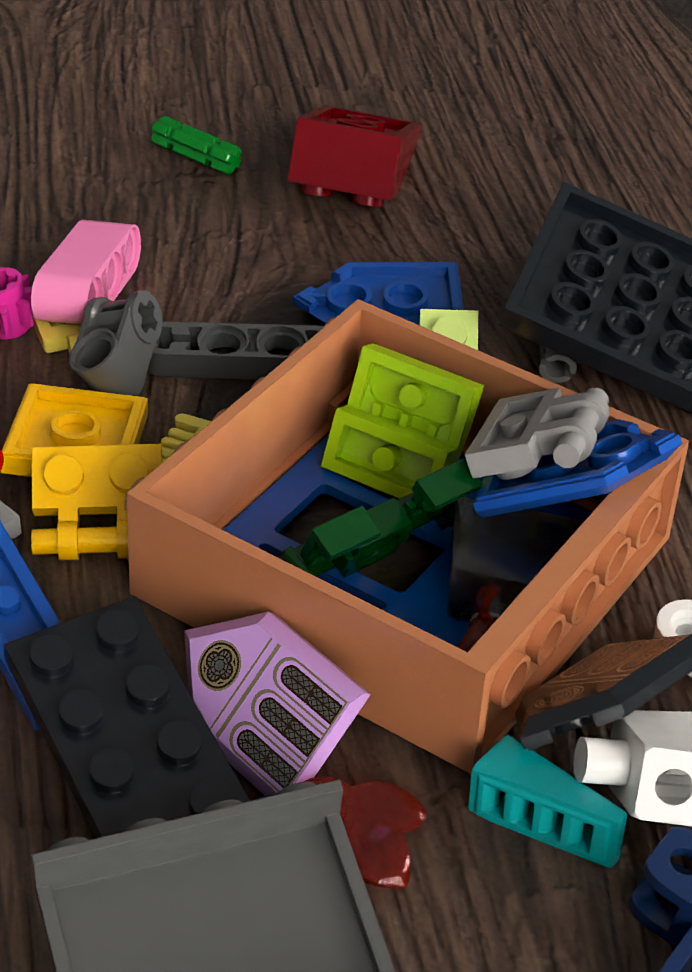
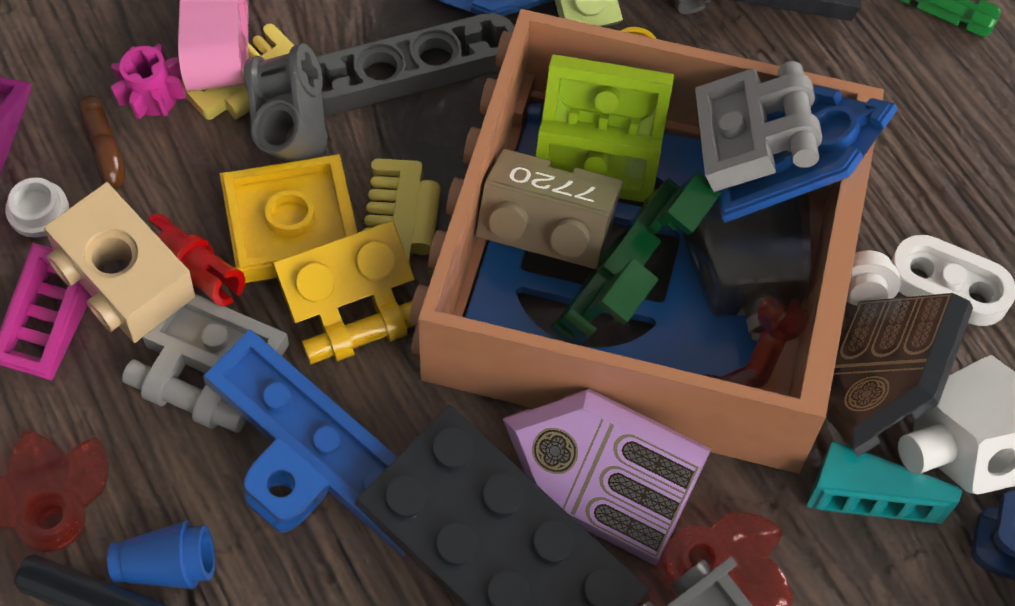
camera: 20 degrees left, 20 degrees up
(312, 470) = (548, 208): none -> dark tan brick
(622, 620) = (872, 278): none -> white plate

